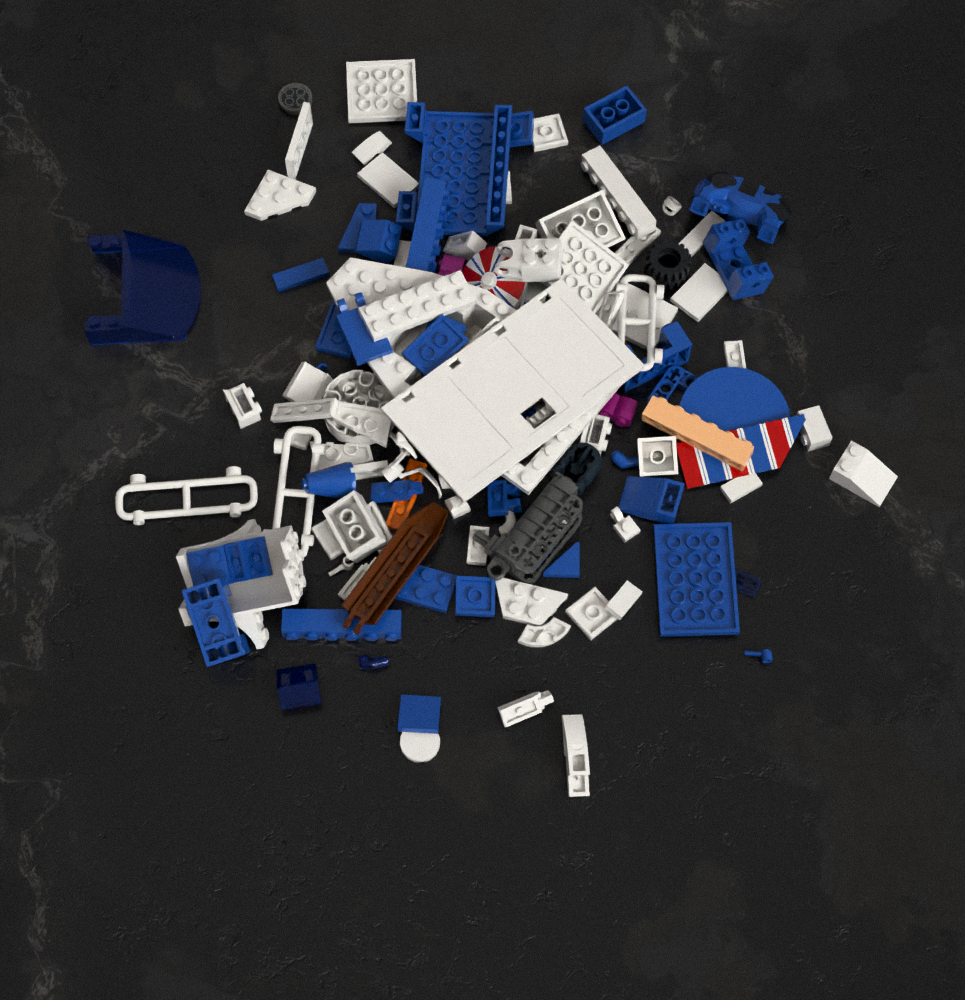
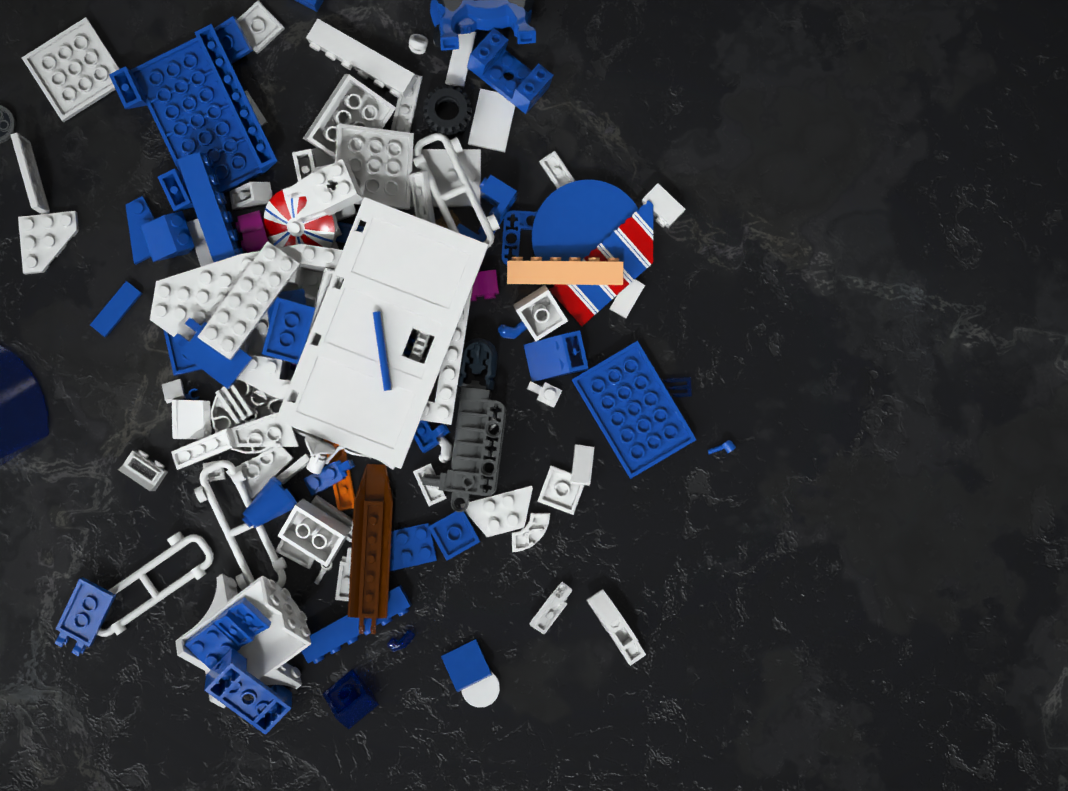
camera: 30 degrees left, 20 degrees up
(116, 490) = (84, 615): none -> tile
(308, 356) = (173, 390): none -> white tile
(352, 372) = (229, 409): none -> white tile
(371, 146) = (101, 137): white slope -> none
(387, 179) = (137, 163): white tile -> none
(504, 400) = (382, 351): none -> blue bar
(567, 565) = (516, 458): blue tile -> none
(596, 432) = (476, 324): white window -> none
(863, 474) = (728, 226): white slope -> none

